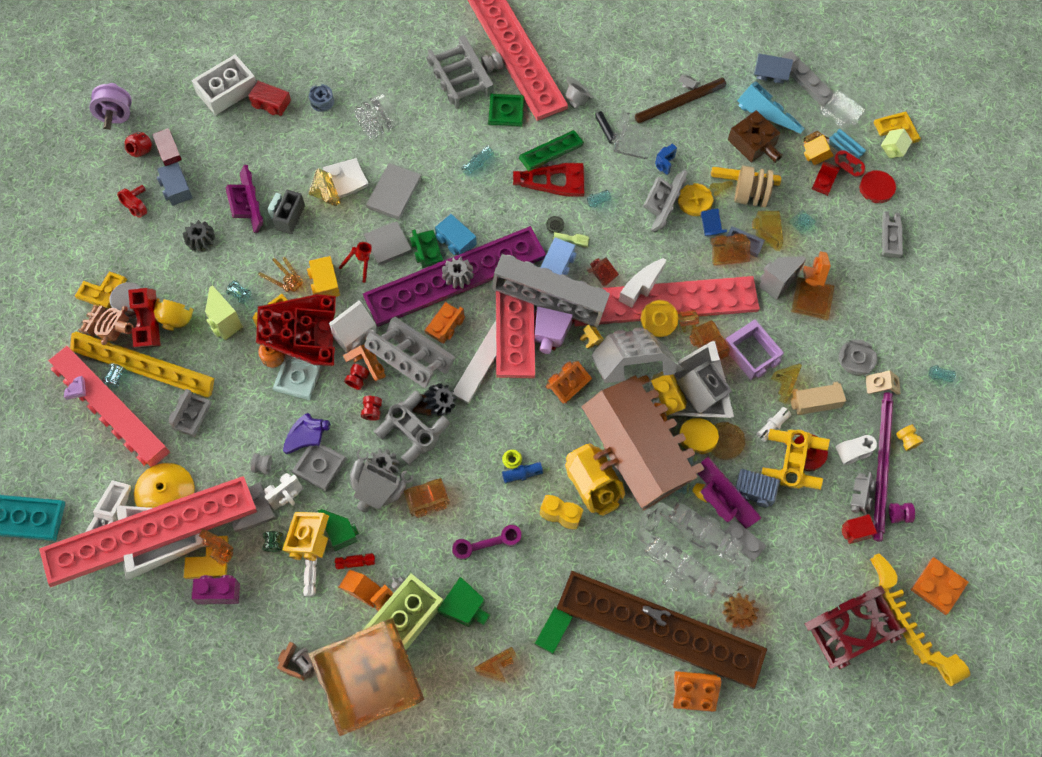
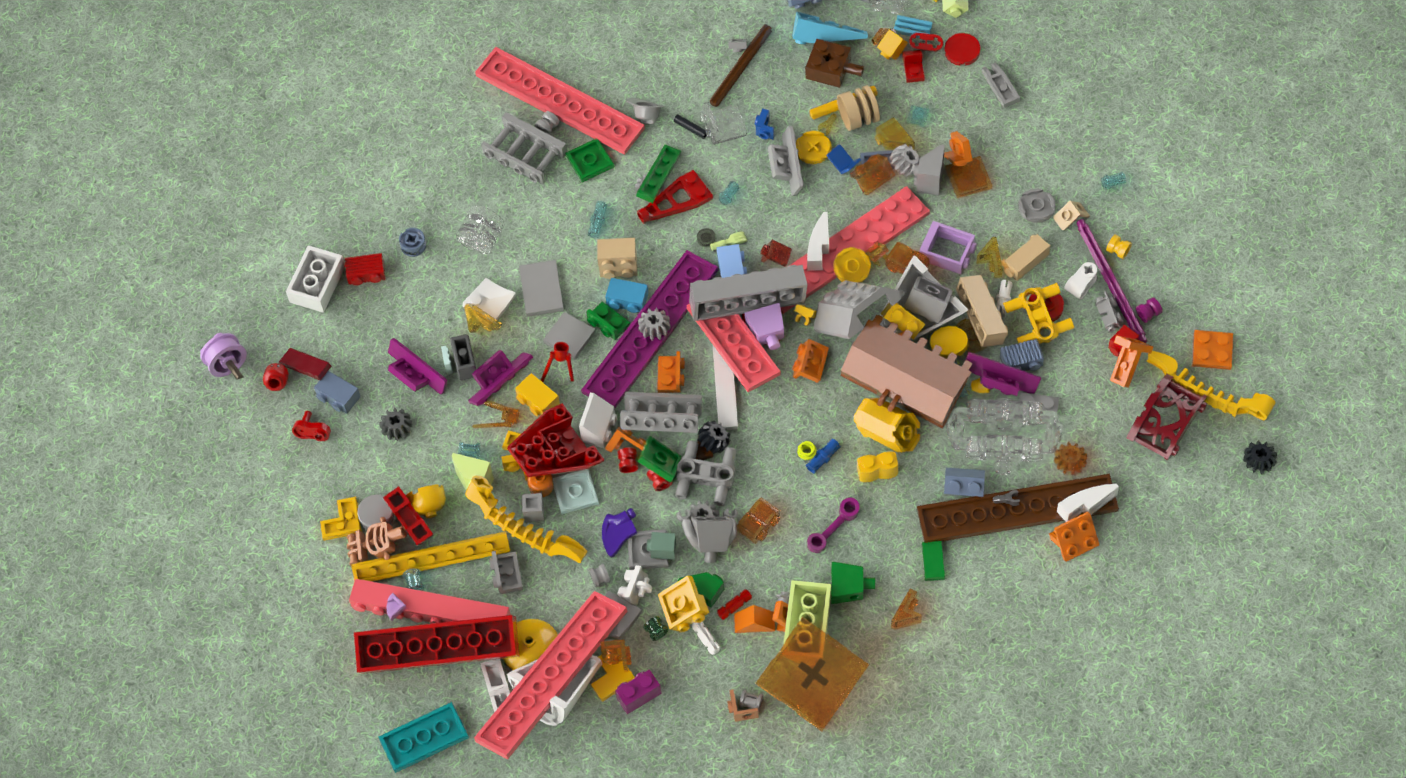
camera: 25 degrees left, 5 degrees down
(82, 443) = (436, 644): none -> red brick
(249, 371) = (533, 507): none -> light grey brick
(251, 421) = (480, 493): none -> yellow piece
(304, 239) = (495, 373): none -> magenta bracket
(328, 470) = (662, 545): none -> sand green brick
(379, 392) = (659, 459): none -> green tile
(467, 200) = (617, 257): none -> tan brick
(628, 574) = (964, 482): none -> sand blue brick
(727, 664) = (1087, 501): none -> white slope
(746, 425) = (982, 311): none -> tan brick
(764, 251) = (904, 159): none -> light grey gear
(853, 549) = (1128, 359): none -> orange bracket
(930, 726) = (1267, 459): none -> black gear

